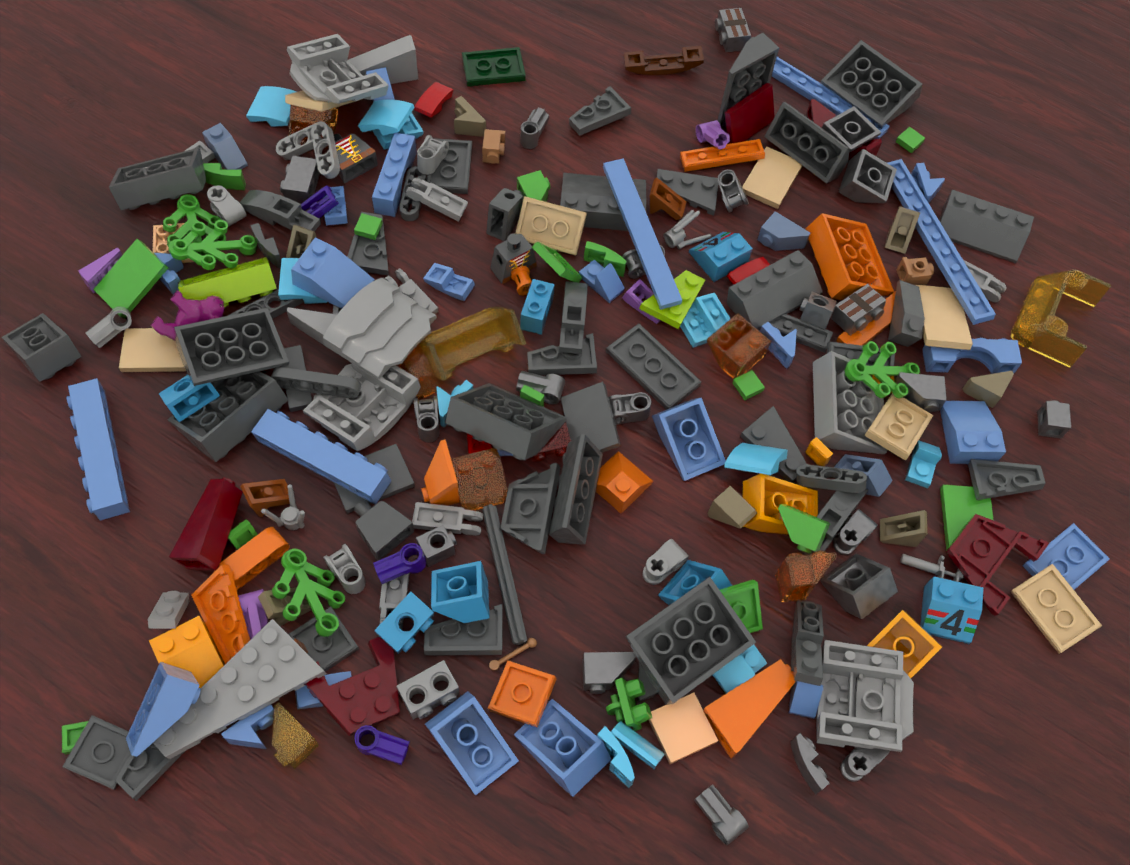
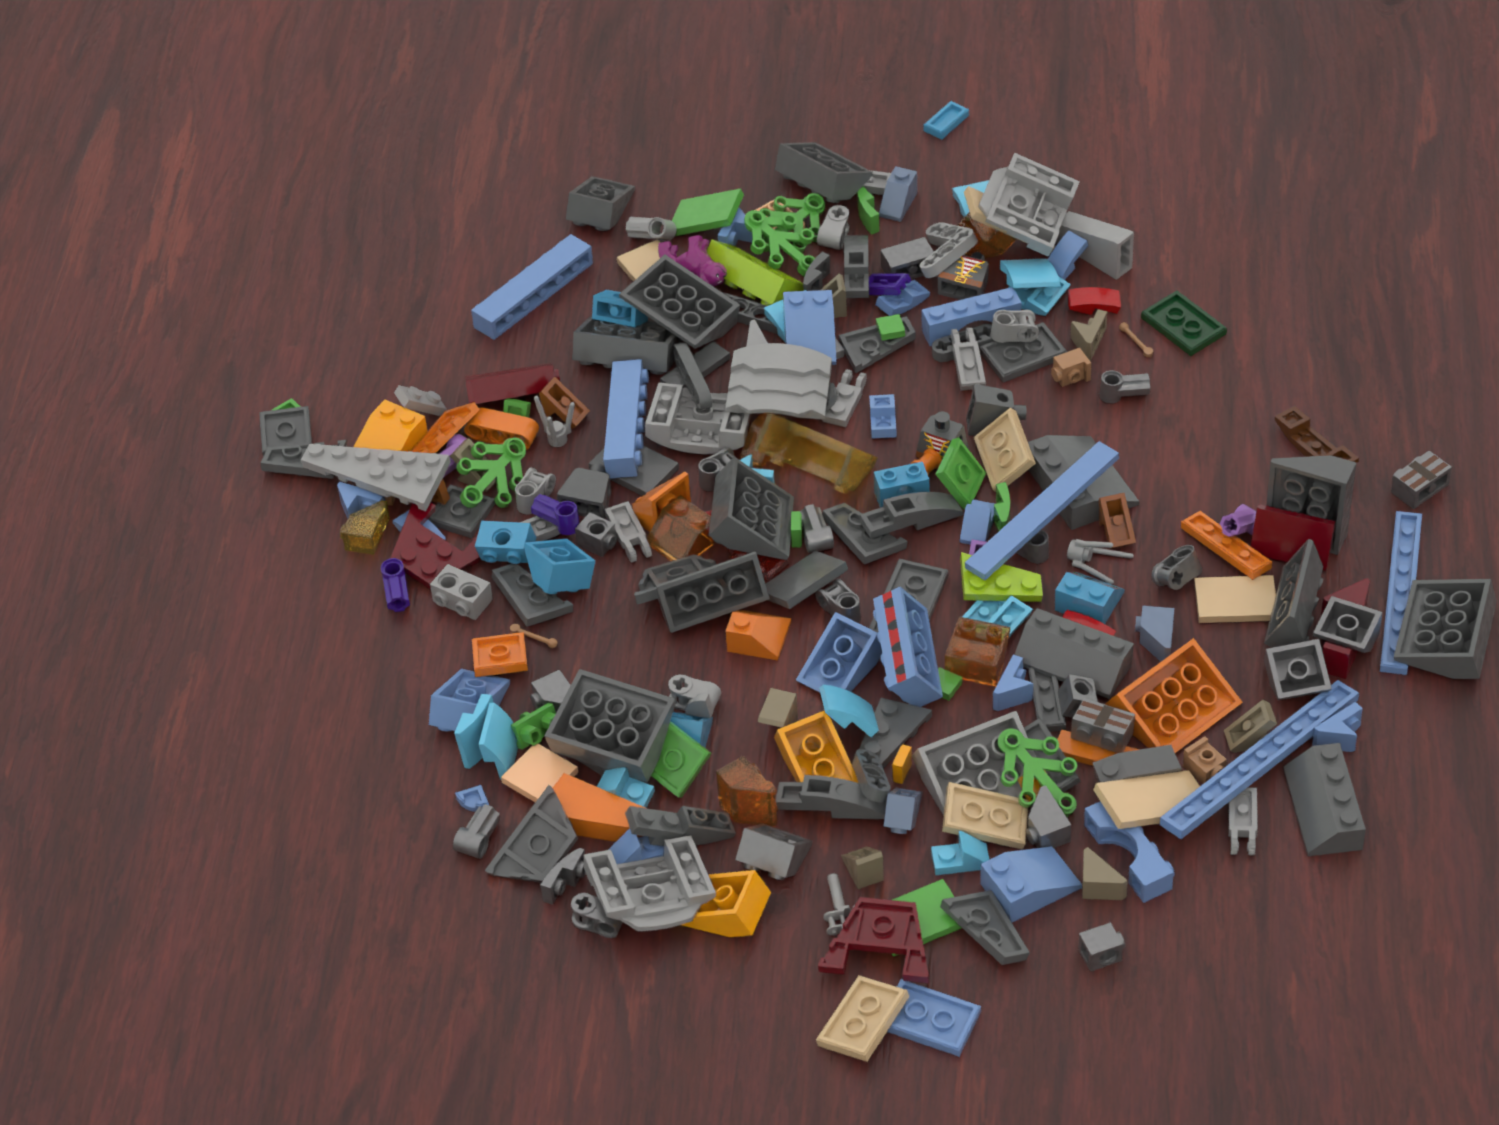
camera: 70 degrees right, 15 degrees down
(95, 271) = (694, 188): medium lavender slope -> none
(164, 704) = (343, 427): medium blue slope -> none
(167, 82) = (946, 120): none -> dark azure tile
(471, 742) = (434, 638): medium blue slope -> none
(504, 99) = (1147, 351): none -> medium nougat hinge
(504, 575) = (603, 594): dark grey axle -> none
(534, 185) = (1042, 420): bright green slope -> none
(601, 112) = (1202, 430): dark grey wing -> none
(674, 798) = (472, 798): none -> medium blue tile
(690, 560) = (700, 706): none -> light grey tile
(693, 188) = (1156, 536): dark grey wing -> none
(726, 387) = (907, 647): none -> medium blue brick
(767, 769) = (537, 842): none -> dark grey wing
(804, 528) = (791, 765): bright green slope -> none
(854, 531) = (833, 826): flat silver piece -> none
(910, 139) = (1405, 696): bright green tile -> none
(951, 609) = (798, 930): dark azure slope -> none
(1040, 329) = (1251, 890): clear yellow windscreen -> none

